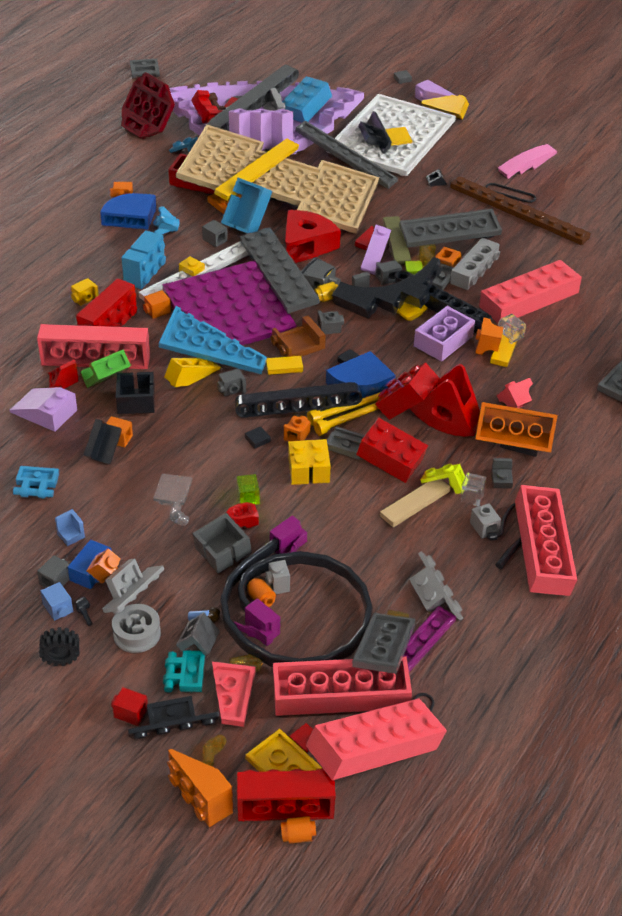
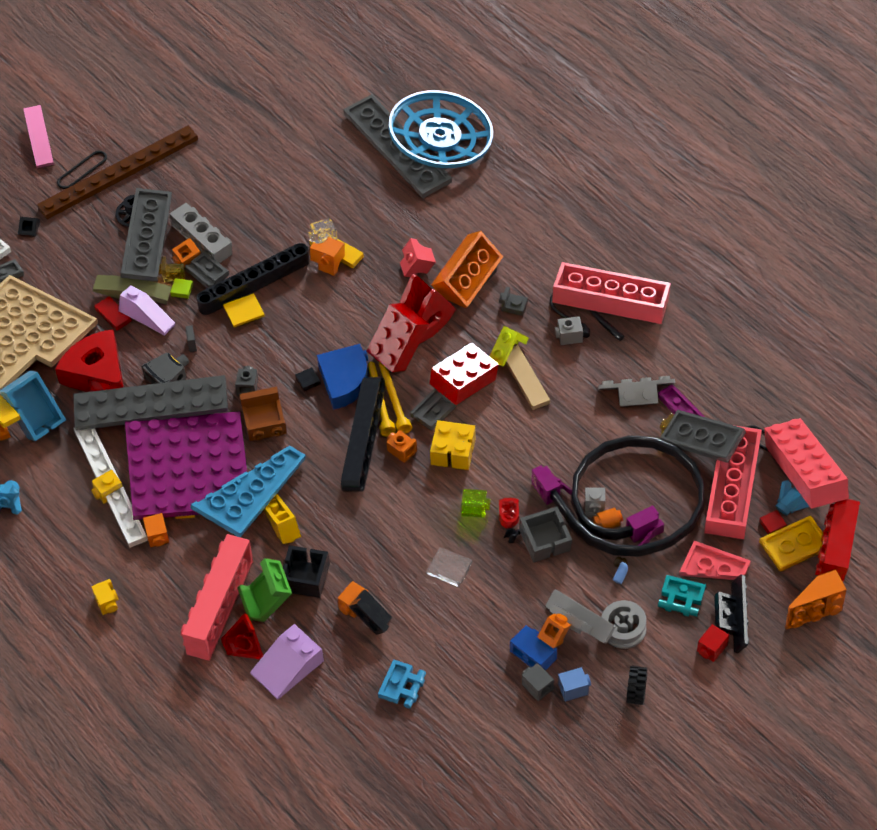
camera: 70 degrees left, 10 degrees up
(69, 527) = (480, 660): medium blue panel -> none
(82, 605) = (580, 663): black hand -> none
(110, 307) = (163, 575): red brick -> none
(143, 259) = (79, 525): dark azure piece -> none
(177, 516) = (486, 570): clear arm -> none
(200, 632) = (645, 577): flat silver panel -> none
(212, 747) = (767, 592): clear yellow arm -> none
(214, 233) = (46, 452): dark grey brick -> none
(231, 382) = (313, 485): dark grey brick -> none
(247, 660) = (682, 547): clear yellow arm -> none
(257, 437) = (397, 482): black tile -> none
(284, 365) = (297, 434): yellow tile -> none
(298, 830) = (863, 545): orange brick -> none
(325, 291) = (195, 369): yellow brick -> none
(386, 271) = (184, 311): dark grey brick -> none
(390, 297) = (240, 294): black arch -> none
(444, 333) = (308, 288): lavender brick -> none
(473, 489) = (531, 325): clear panel -> none
(530, 291) = (267, 202): coral brick -> none

